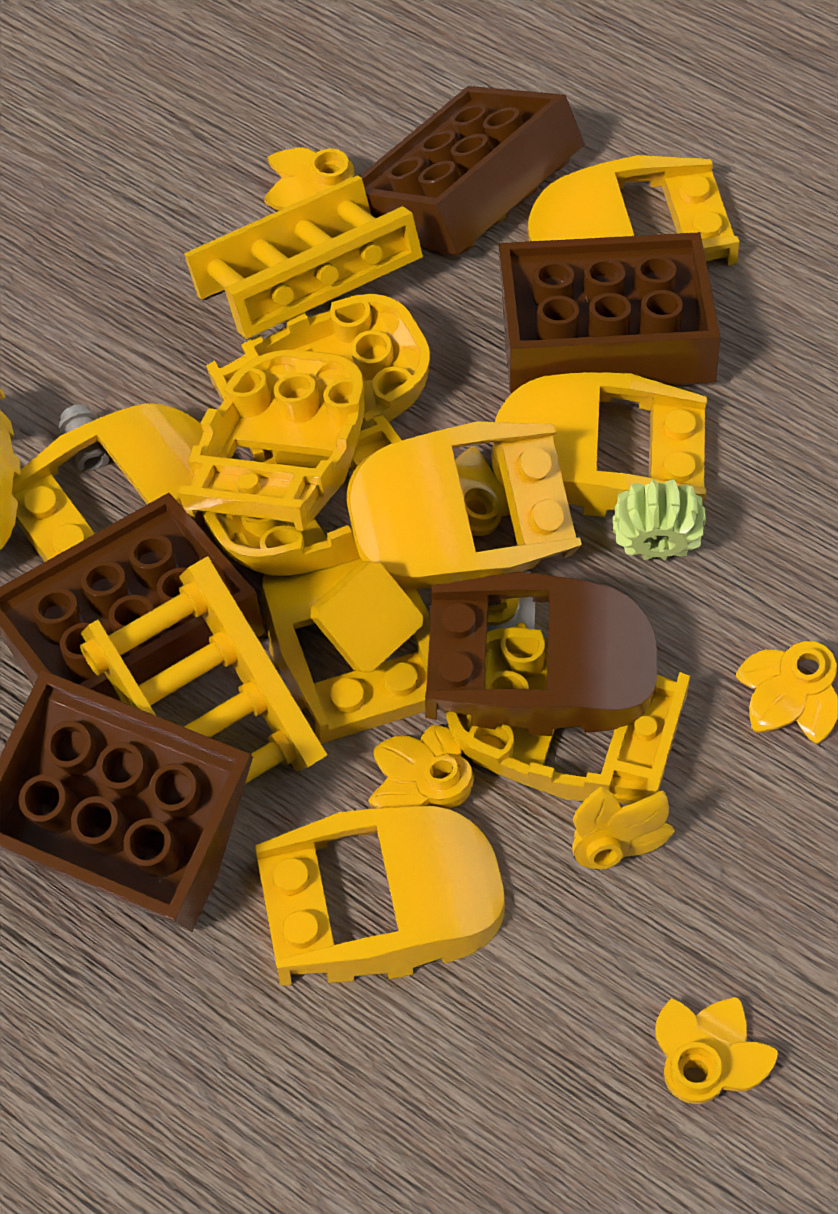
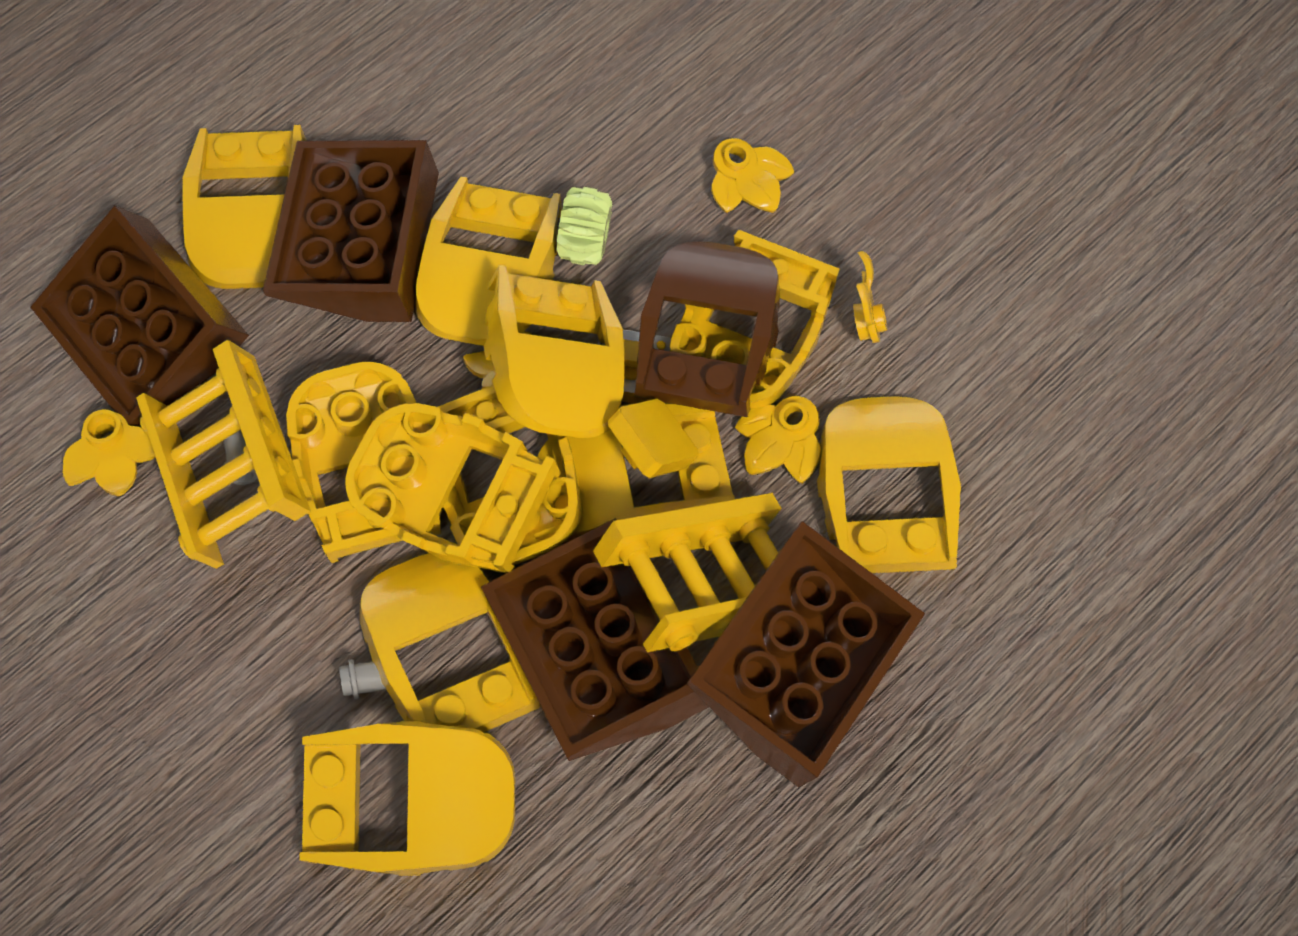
camera: 80 degrees left, 5 degrees up
(713, 1044) = (1038, 282): yellow plate -> none

